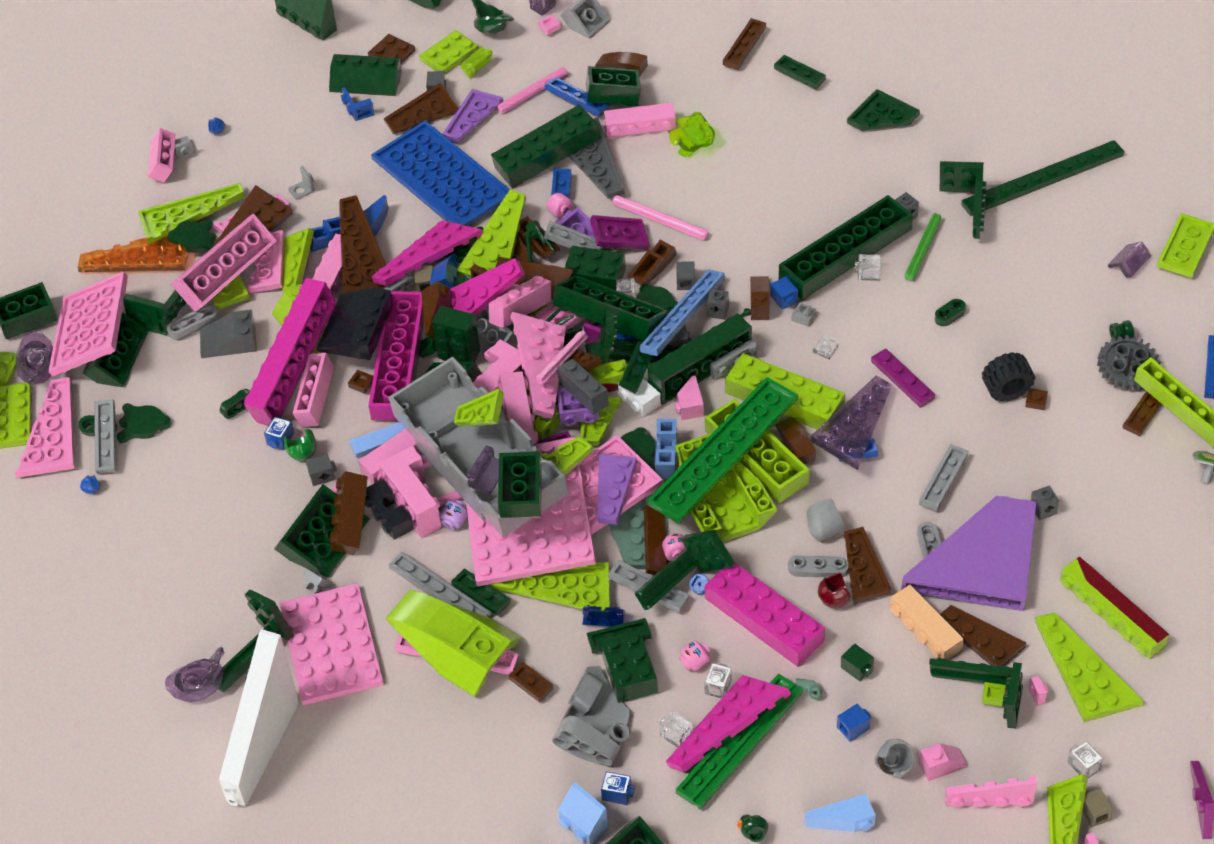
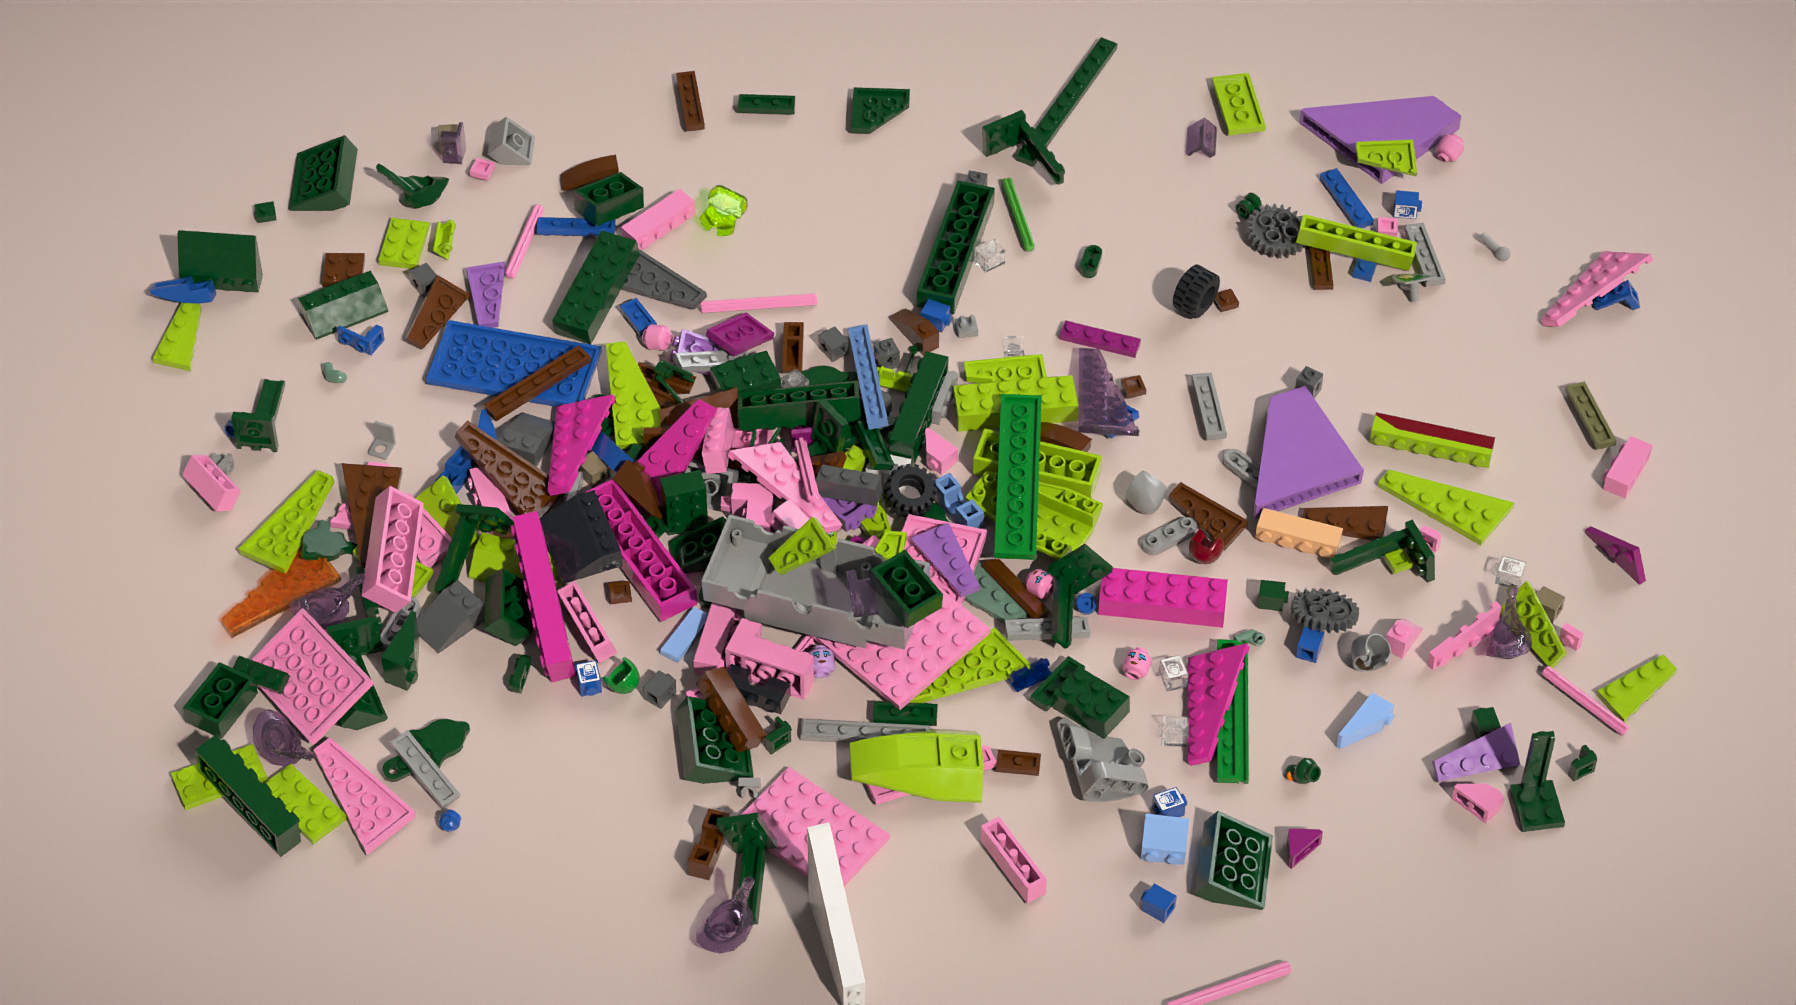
camera: 40 degrees left, 0 degrees up
(64, 306) = (264, 675): none -> dark green plate
(150, 281) = (327, 605): none -> clear purple hat
(170, 342) = (402, 655): none -> dark green slope
(225, 136) = (259, 428): none -> dark green bracket
(230, 618) = (706, 853): none -> reddish brown arch
(237, 49) = (179, 340): none -> lime wing
(255, 349) = (507, 608): none -> dark green brick
(271, 15) = (184, 290): none -> blue slope
(274, 285) = (470, 519): none -> dark green bracket
(314, 120) = (332, 375): none -> sand green arm
(371, 556) = (779, 737): none -> dark green bracket
(398, 232) = (528, 437): none -> dark grey slope
(439, 195) = (537, 383): none -> reddish brown plate
(451, 758) = (1013, 859): none -> bright pink brick
(627, 404) = (909, 477): none -> black tyre
(703, 321) = (897, 381): none -> lime hinge
(803, 363) = (1005, 369): none -> lime wing
(888, 700) = (1325, 610): none -> dark grey gear
(894, 429) = (1133, 386): none -> reddish brown plate
(1034, 816) = (1509, 635): none -> hat
(1180, 433) = (1364, 270): none -> blue plate

